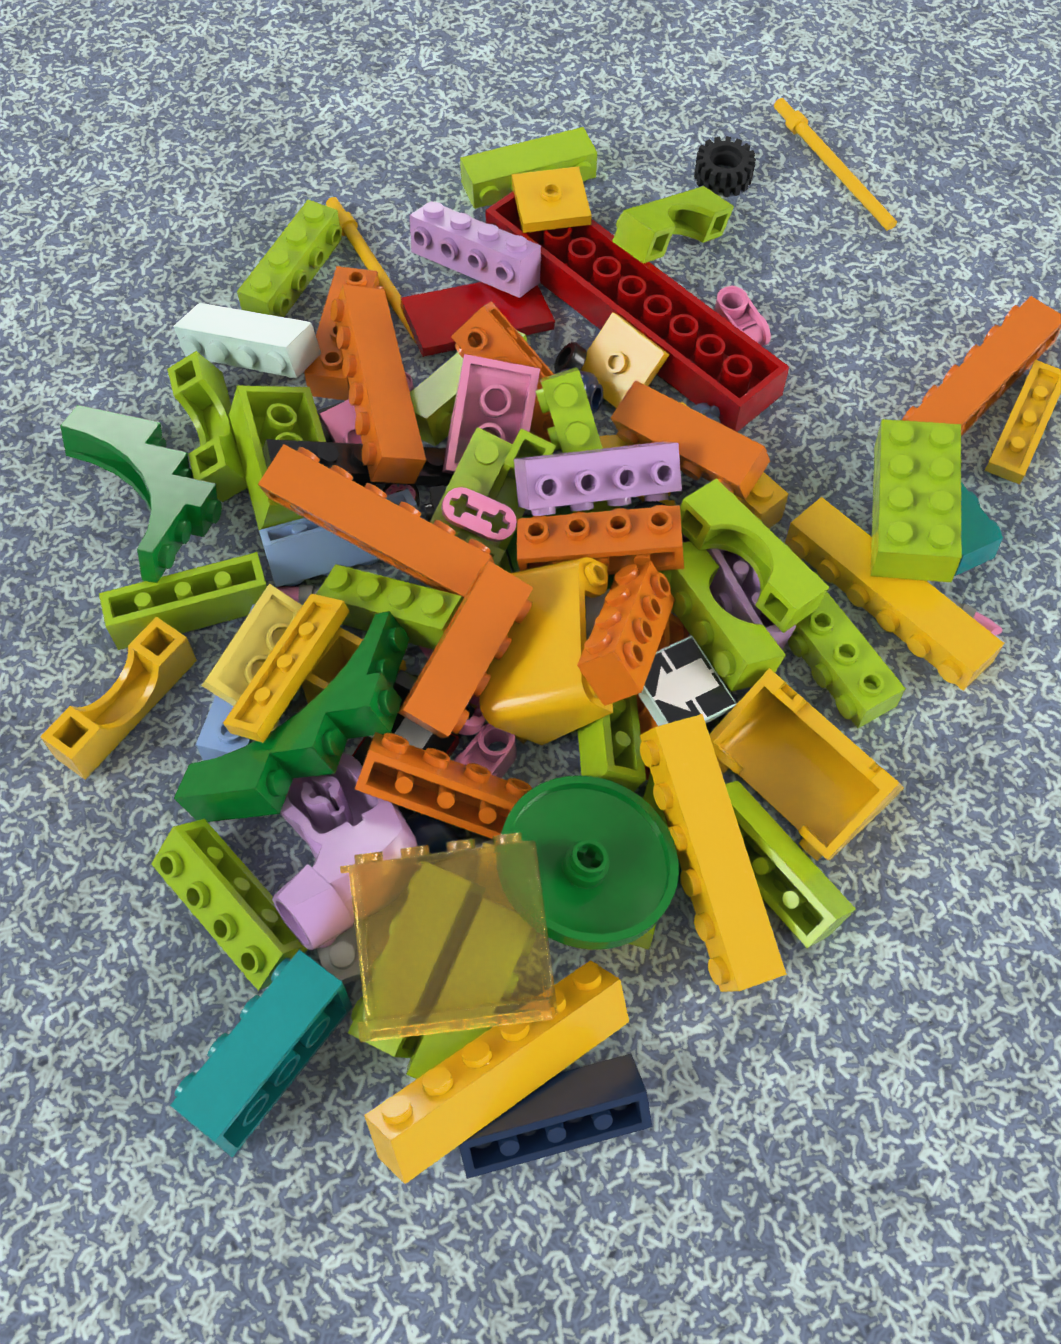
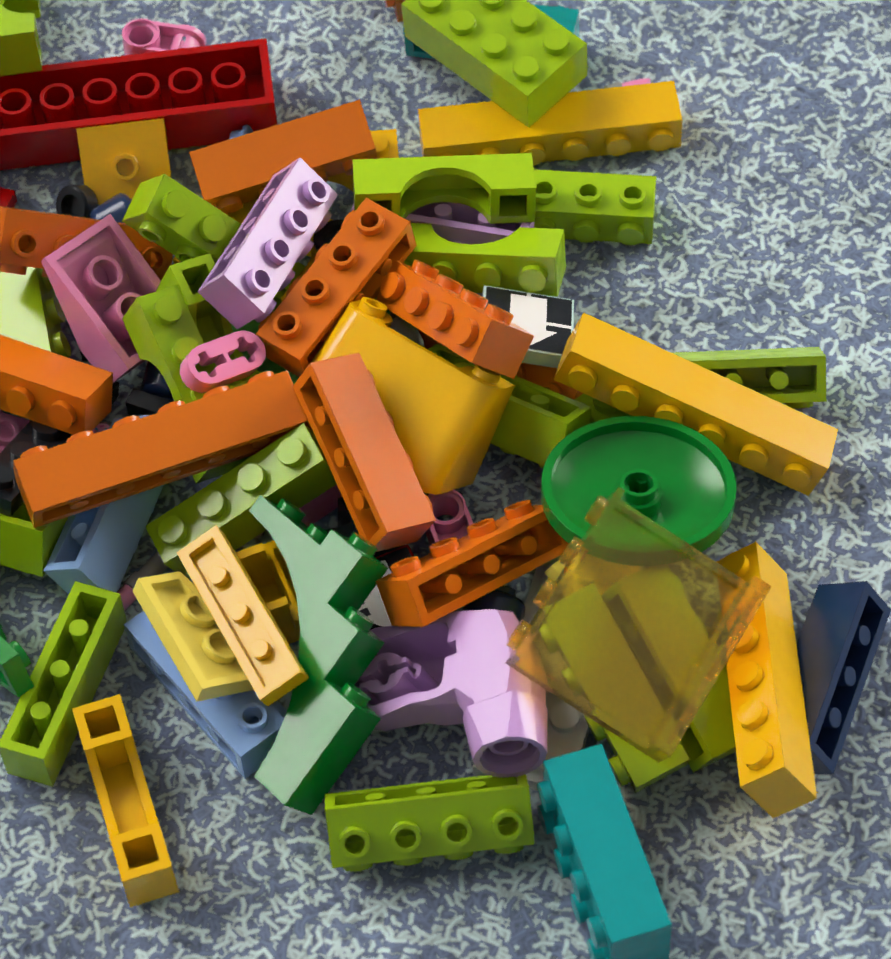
camera: 50 degrees left, 5 degrees down
(802, 766) = (671, 294): yellow windscreen -> none

